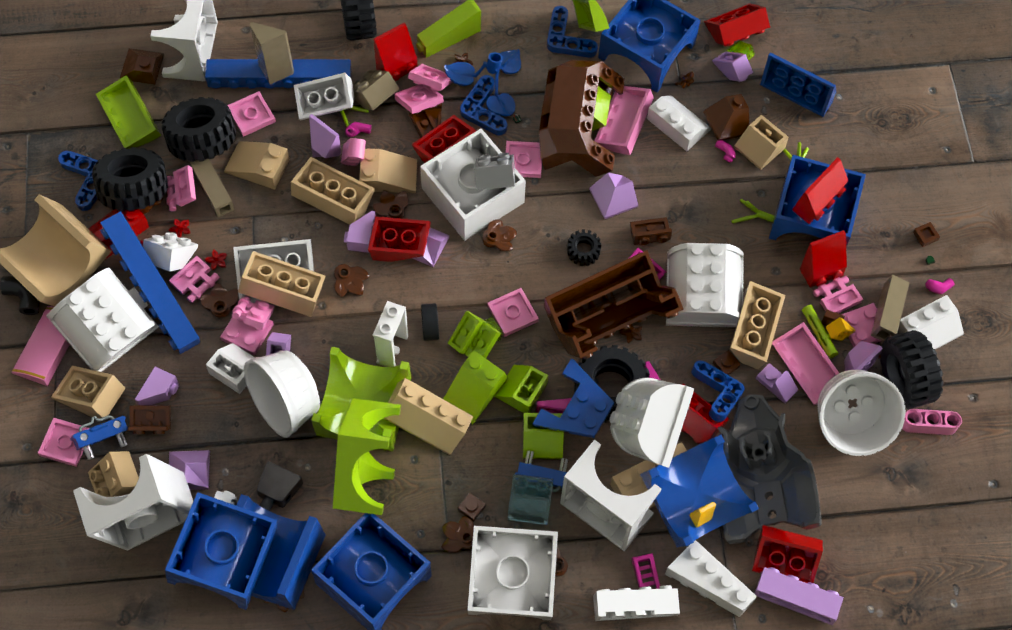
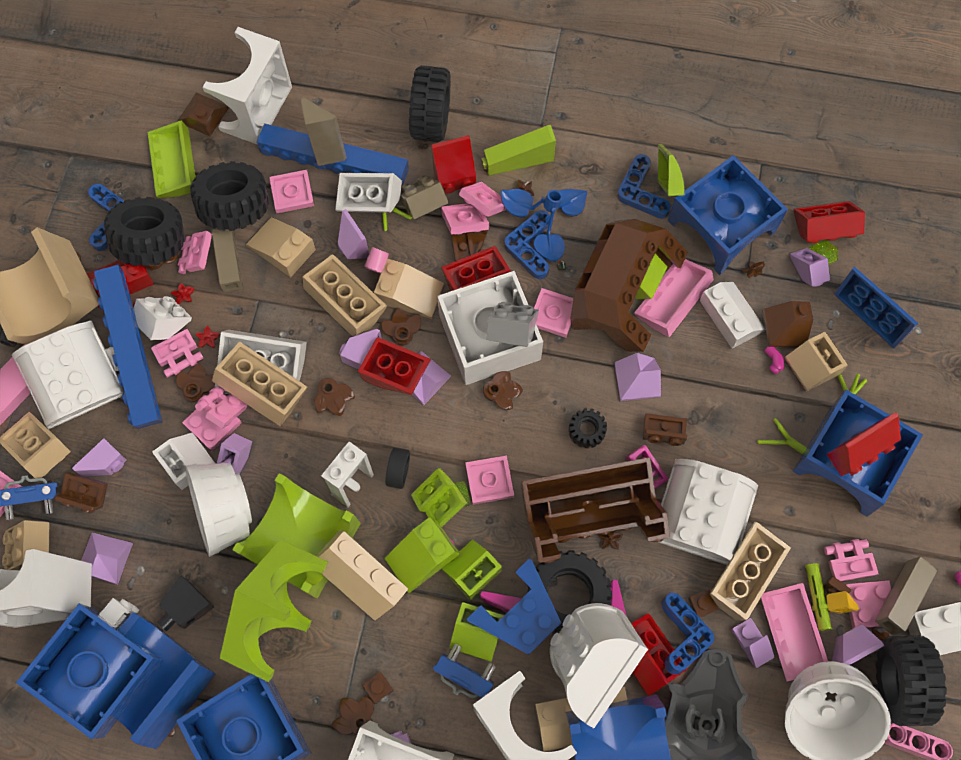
camera: 20 degrees right, 5 degrees up
(356, 128) = (393, 233): dark pink arm -> none
(530, 499) = (441, 700): clear light blue slope -> none
(825, 259) = (848, 519): red slope -> none

